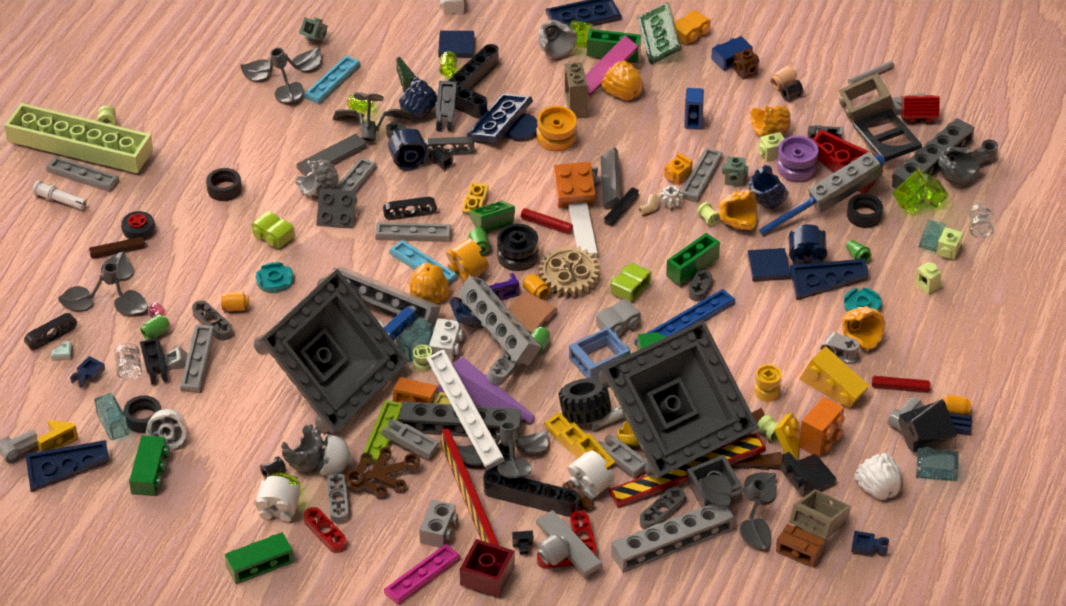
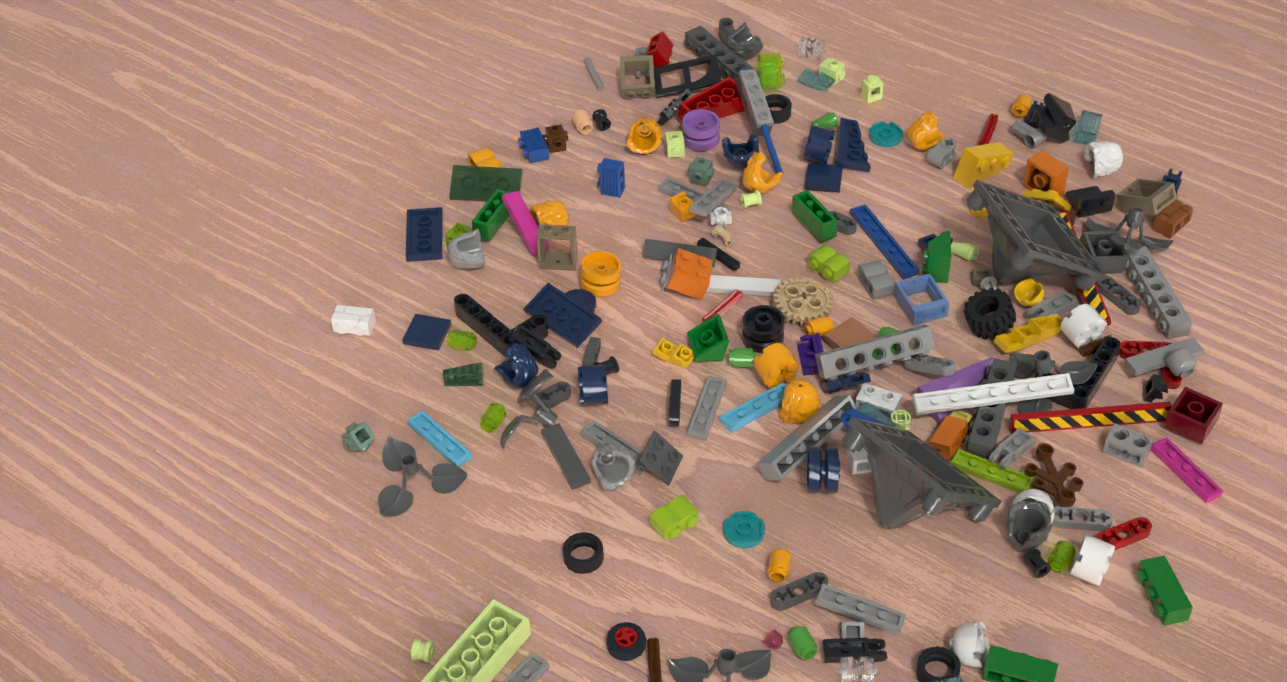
camera: 75 degrees left, 0 degrees up
(694, 184) = (713, 198): none -> light grey tile

